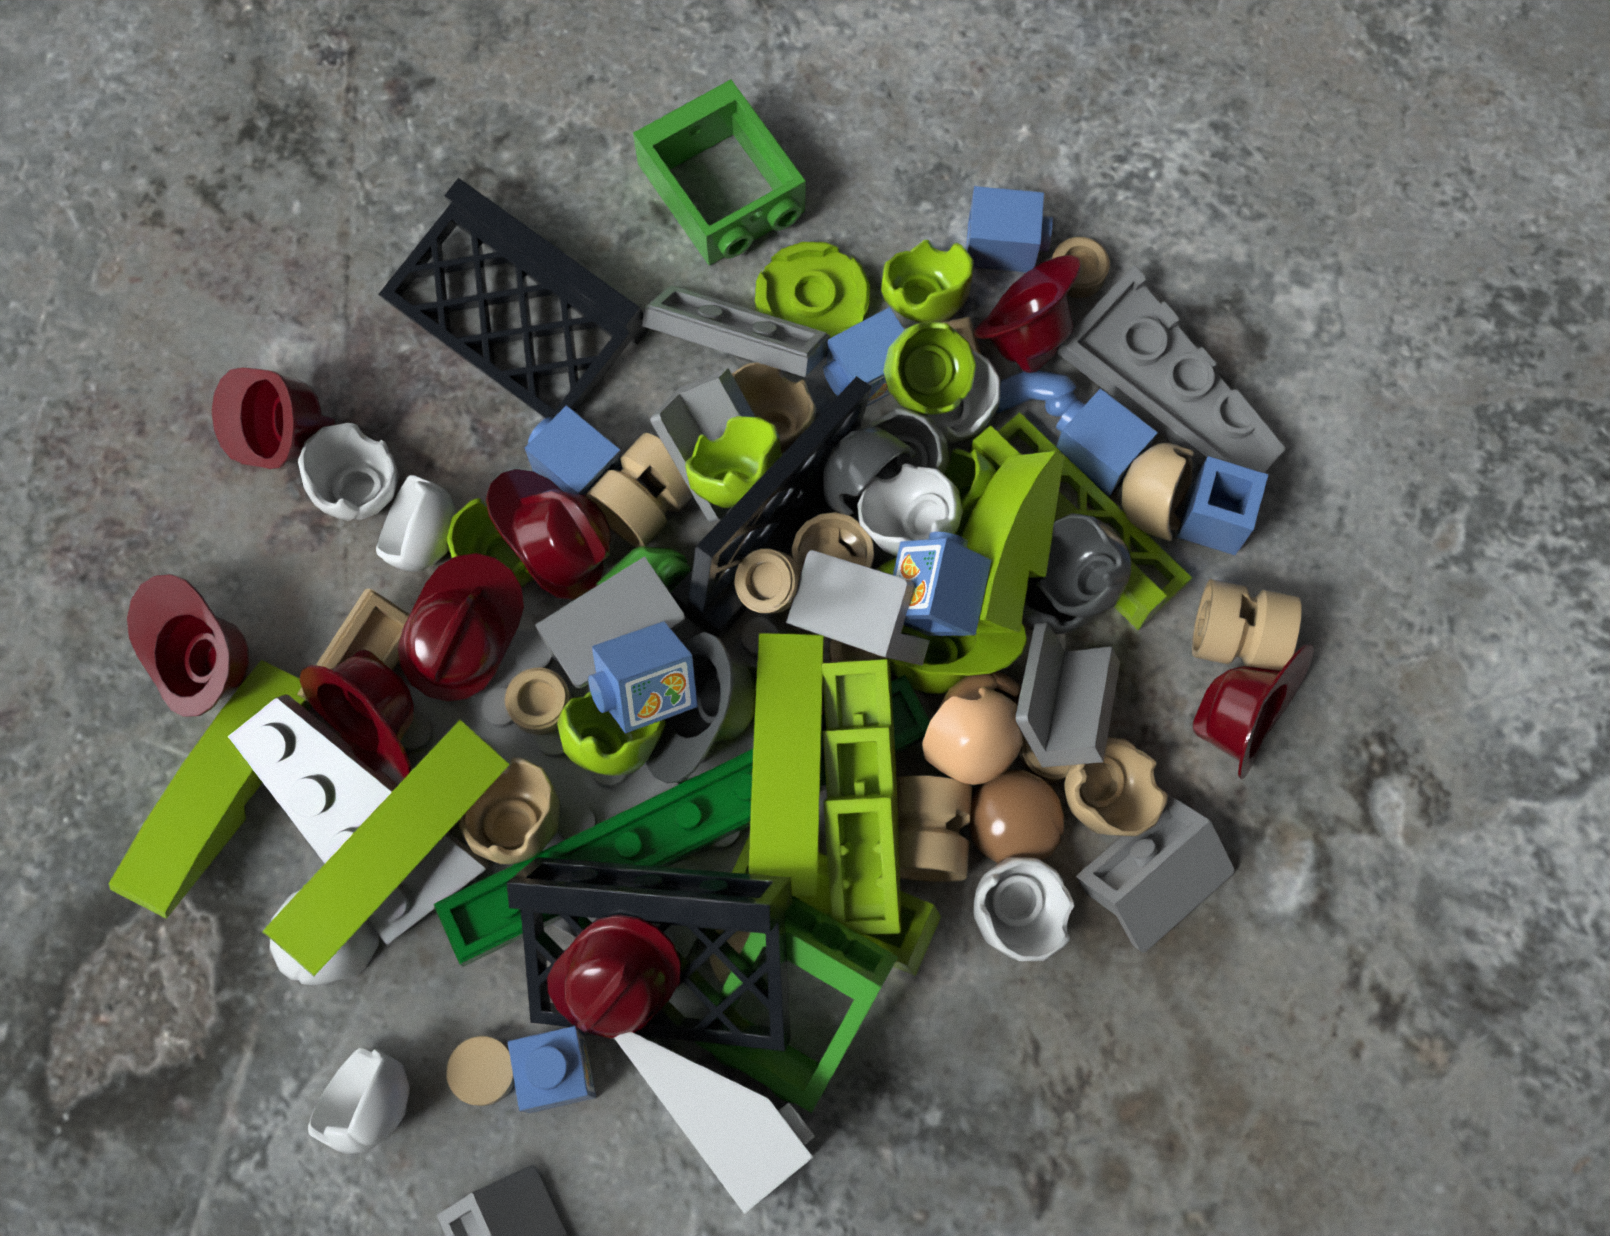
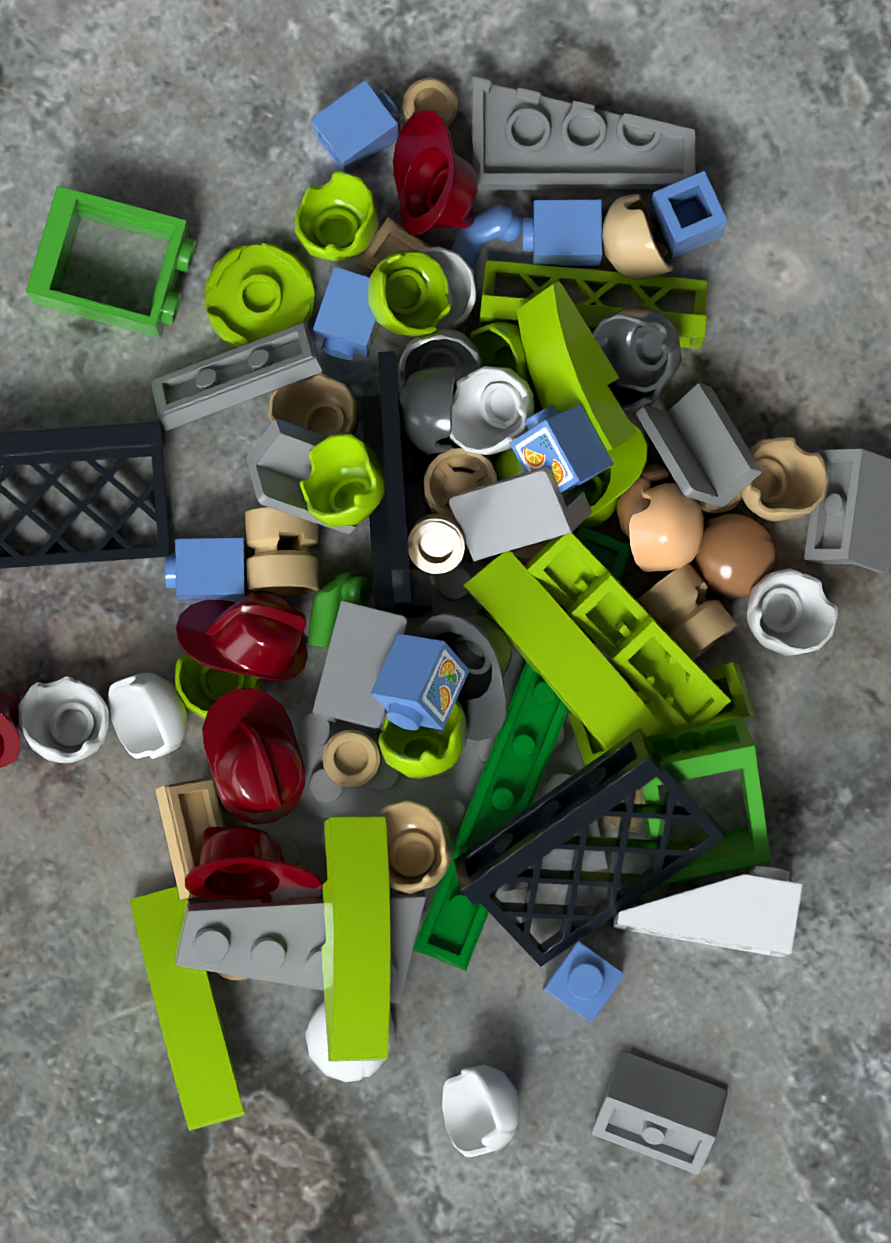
camera: 40 degrees left, 10 degrees up
(185, 646) = (75, 936): dark red piece -> none
(480, 1071) = (535, 1025): tan tile -> none
(615, 976) = (580, 888): dark red piece -> none
(1246, 705) = (818, 345): dark red piece -> none
(1255, 628) = (793, 283): tan wheel -> none

